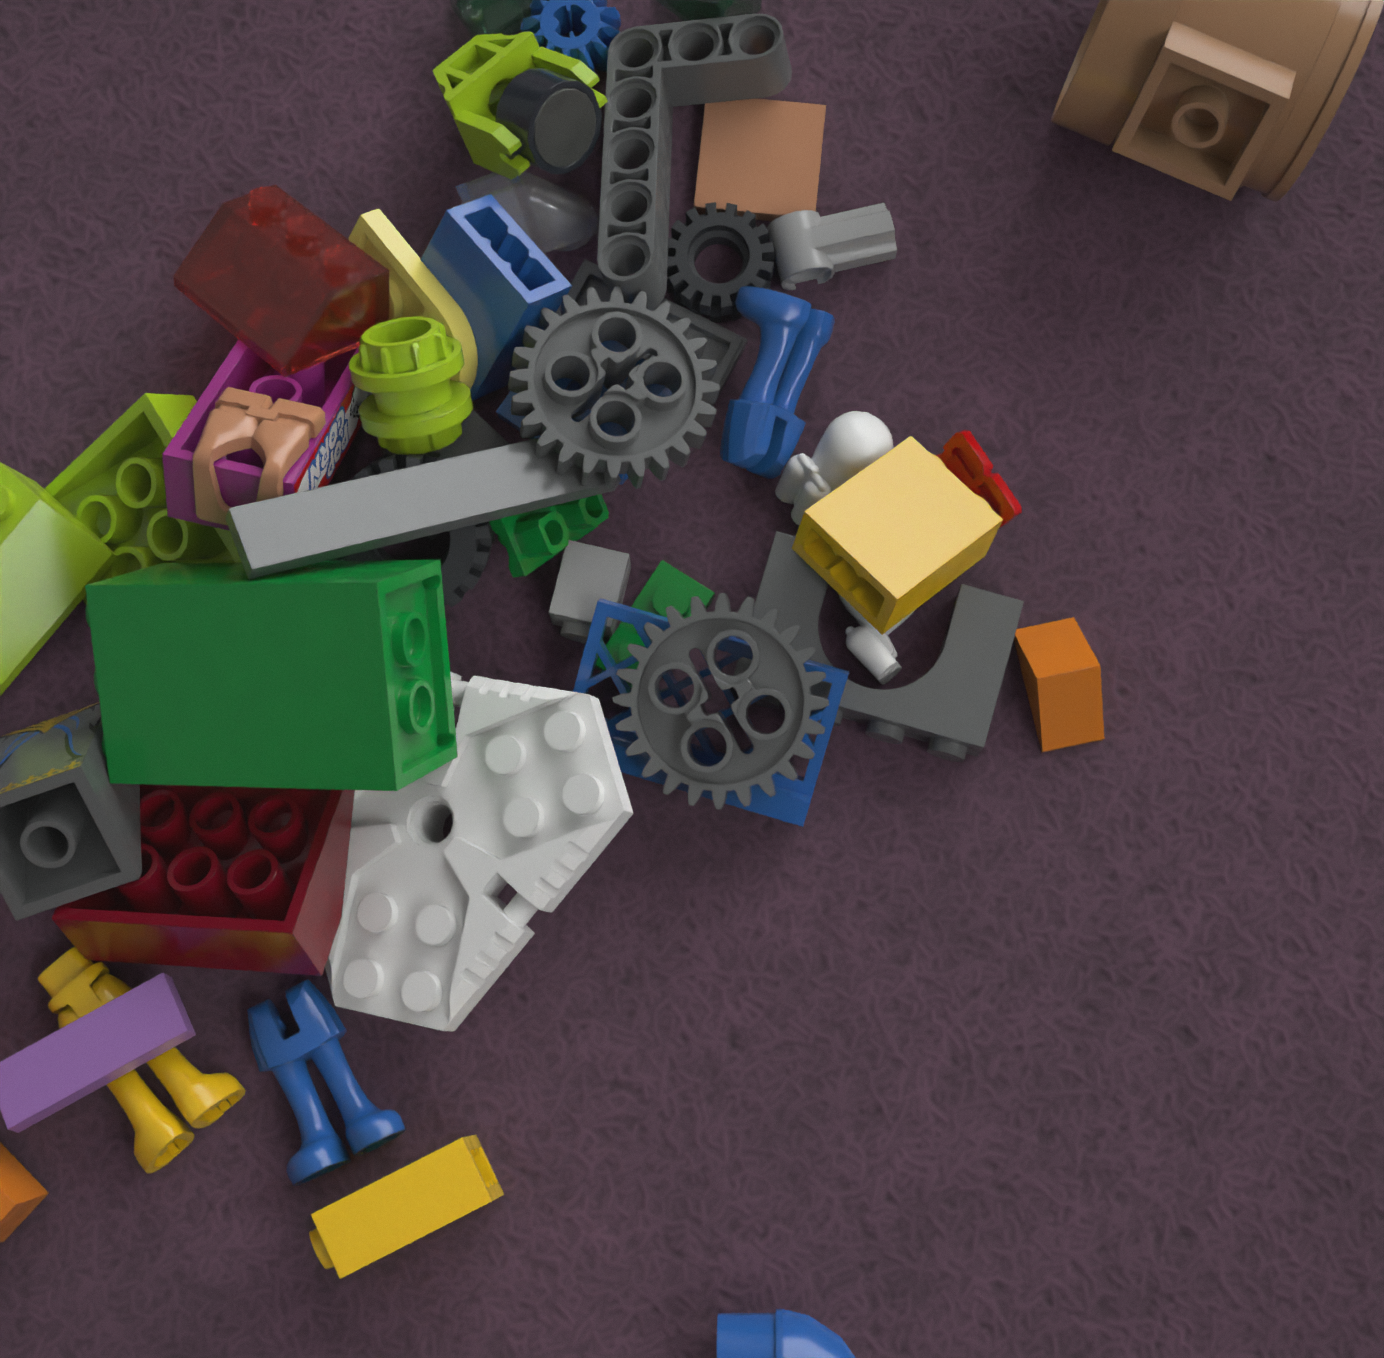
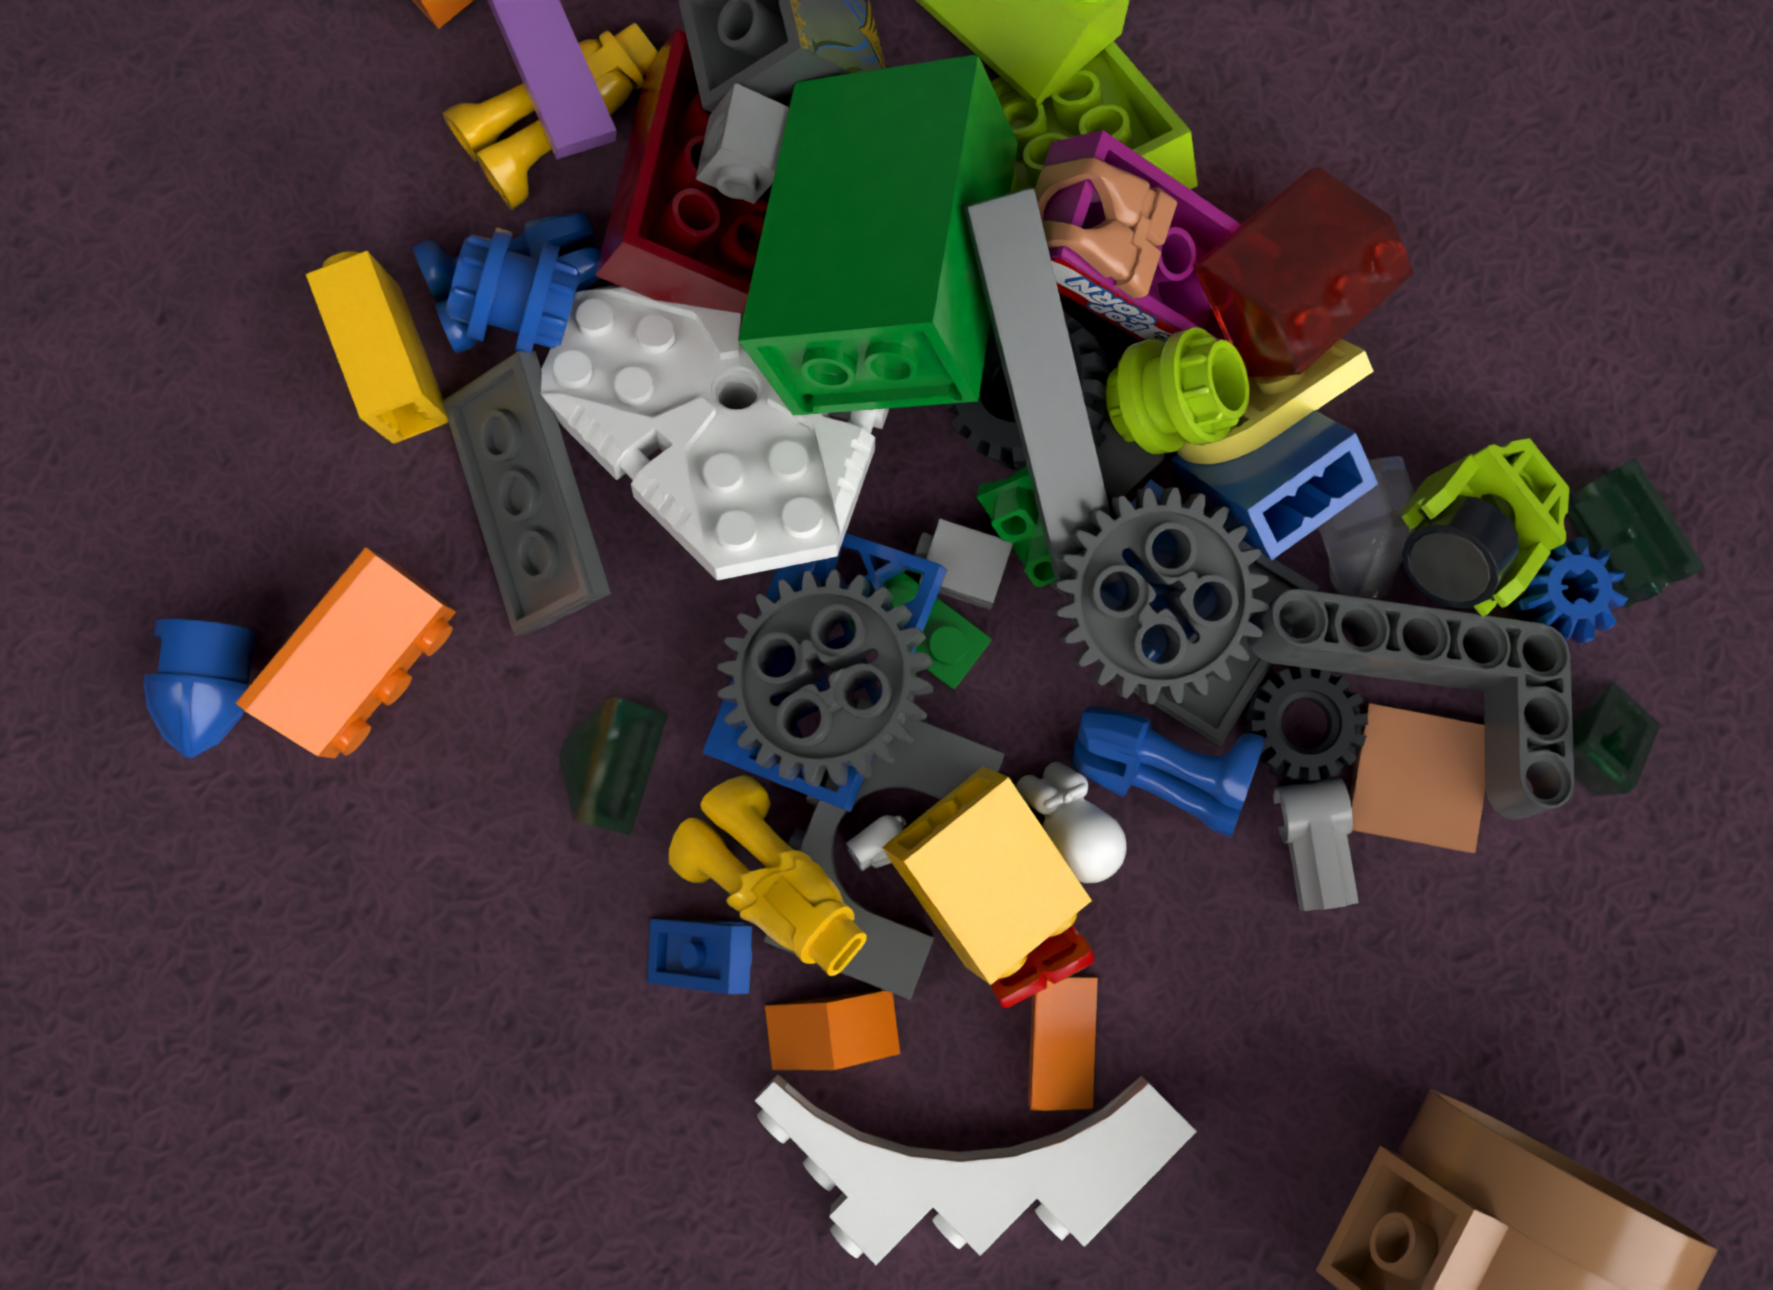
camera: 95 degrees right, 5 degrees up
(177, 830) = (742, 144): none -> light grey brick
(343, 1061) = (512, 291): none -> blue piece
(552, 1037) = (525, 495): none -> dark grey tile
(740, 1199) = (349, 657): none -> slope
(819, 928) = (610, 763): none -> clear green slope
(943, 720) = (787, 898): none -> yellow piece
(1002, 812) = (700, 955): none -> blue slope
(1051, 464) = (1063, 1045): none -> orange slope
(1171, 447) = (888, 1187): none -> white arch

